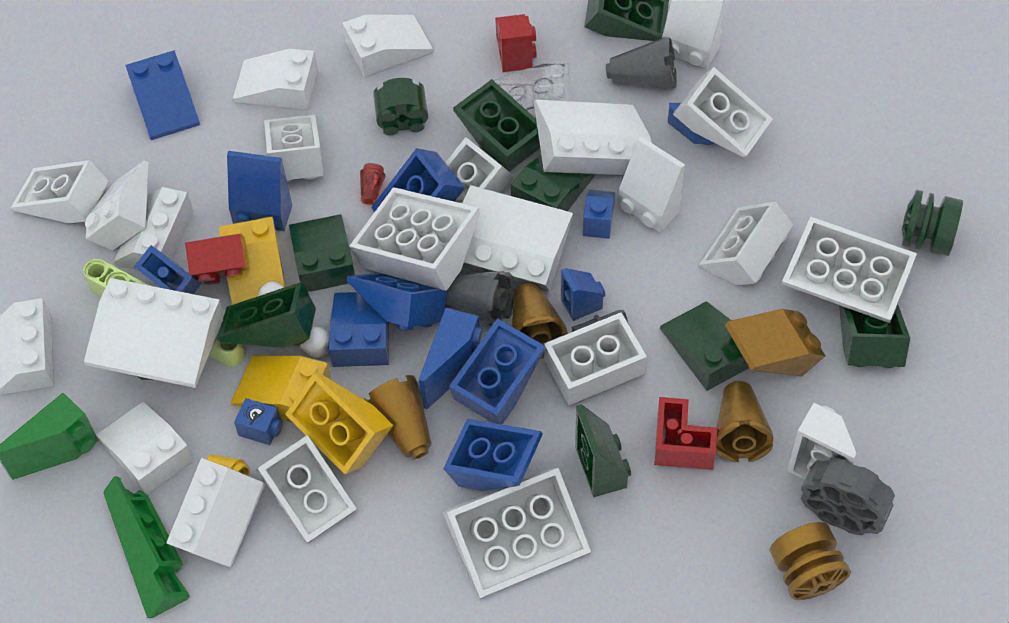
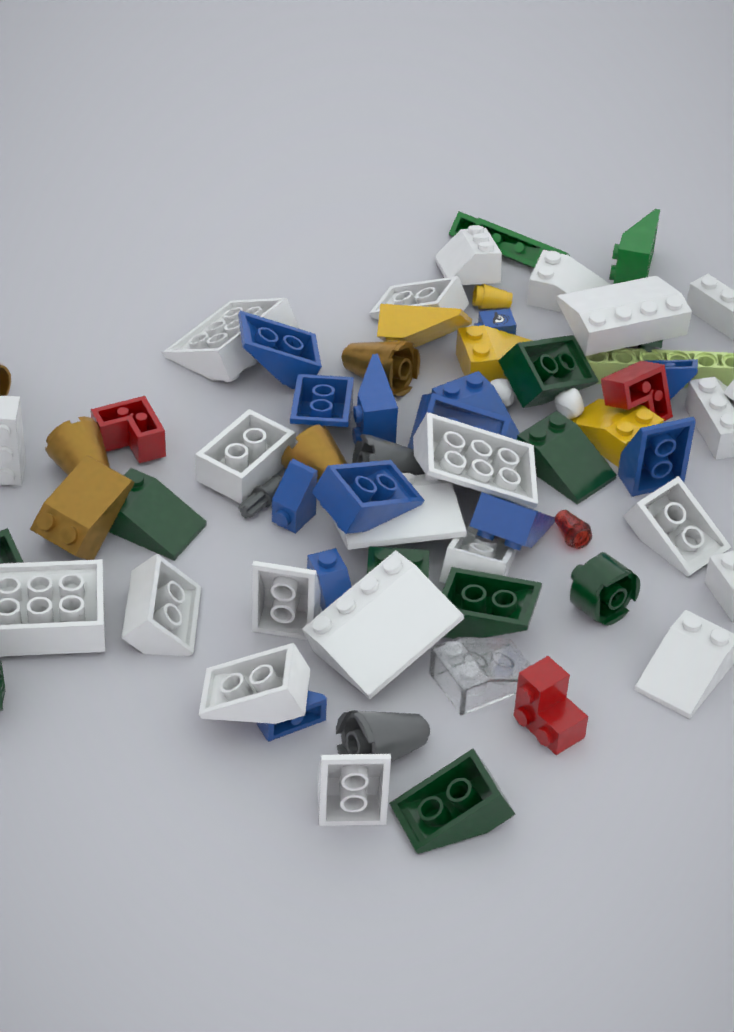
camera: 145 degrees right, 15 degrees down
(535, 227) = (365, 494): none -> blue slope
(599, 453) = (194, 380): dark green slope -> none

